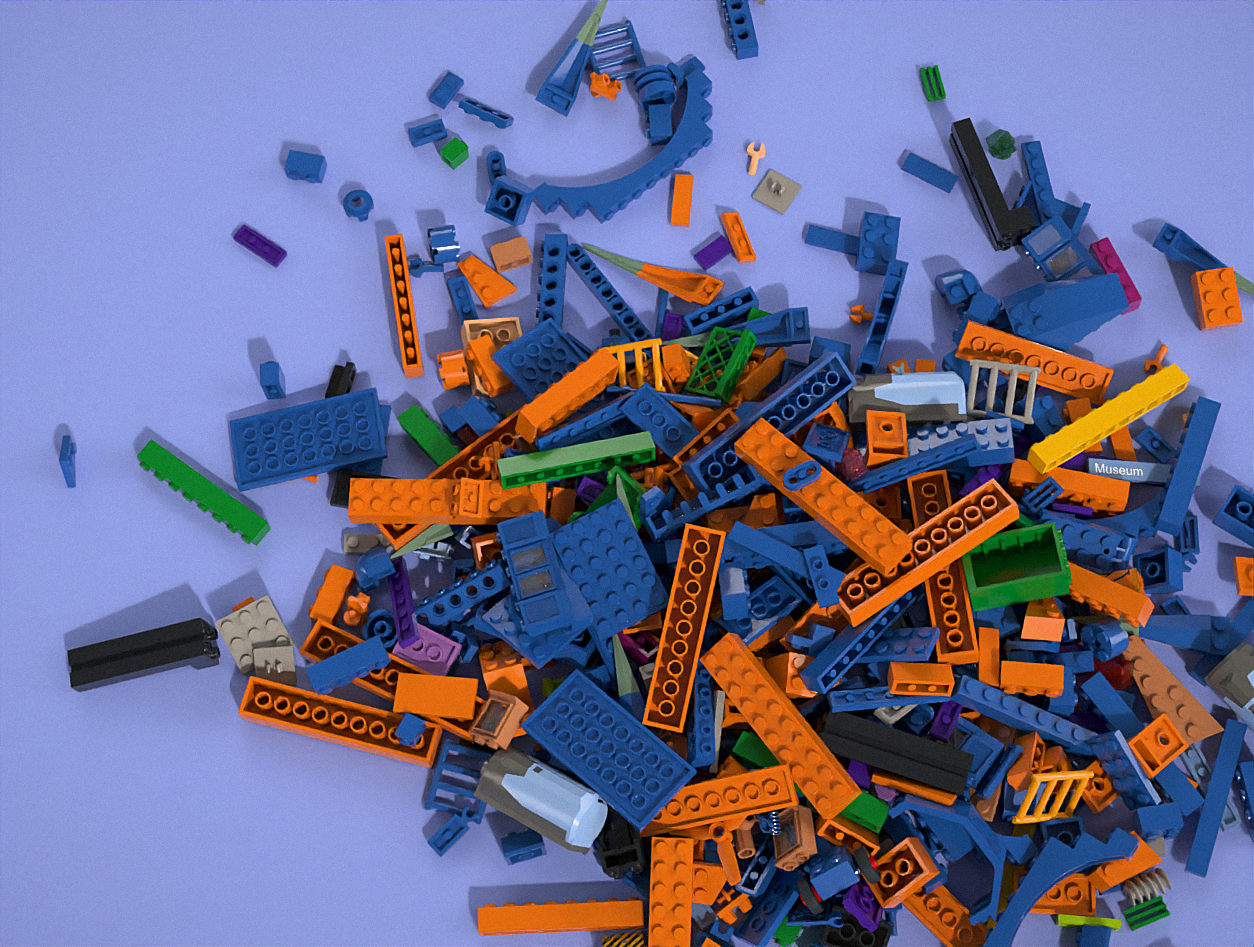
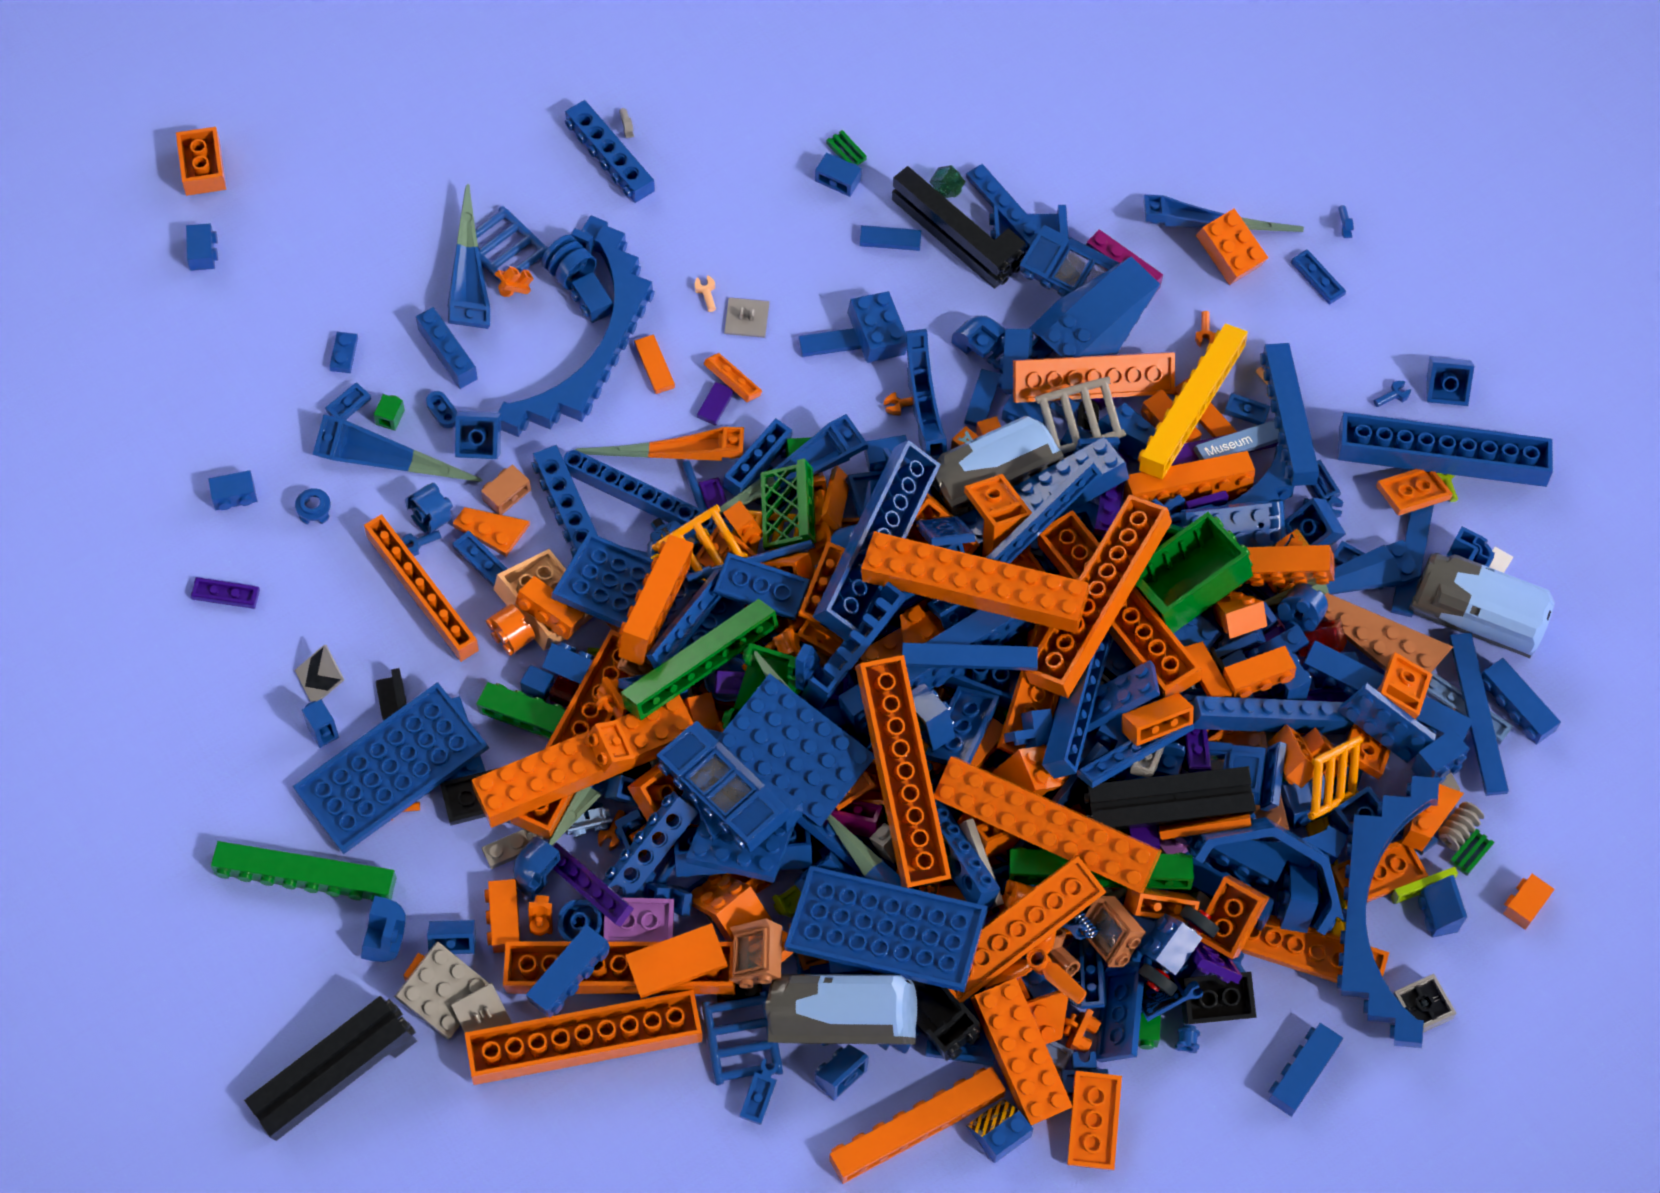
camera: 35 degrees left, 5 degrees down
(67, 460) = (135, 903): blue wing -> none
(235, 567) = (384, 931): none -> blue brick
(284, 595) = (456, 936): none -> blue brick
(293, 342) = (319, 674): none -> light grey piece
(410, 730) = (667, 1007): blue brick -> none
(414, 168) = (353, 444): none -> blue plate
(446, 567) = (610, 833): none -> orange bar
(486, 113) = (400, 358): blue plate -> none
(524, 119) = (446, 347): none -> blue brick
(801, 475) = (948, 569): blue plate -> none
(821, 576) = (1016, 659): blue plate -> none
(852, 465) = (984, 544): clear pink brick -> none
(914, 101) = (838, 174): none -> blue brick
(934, 339) = (982, 397): none -> blue tile
(968, 883) = (1297, 899): none -> blue brick
(1030, 506) = (1180, 483): blue tile -> none

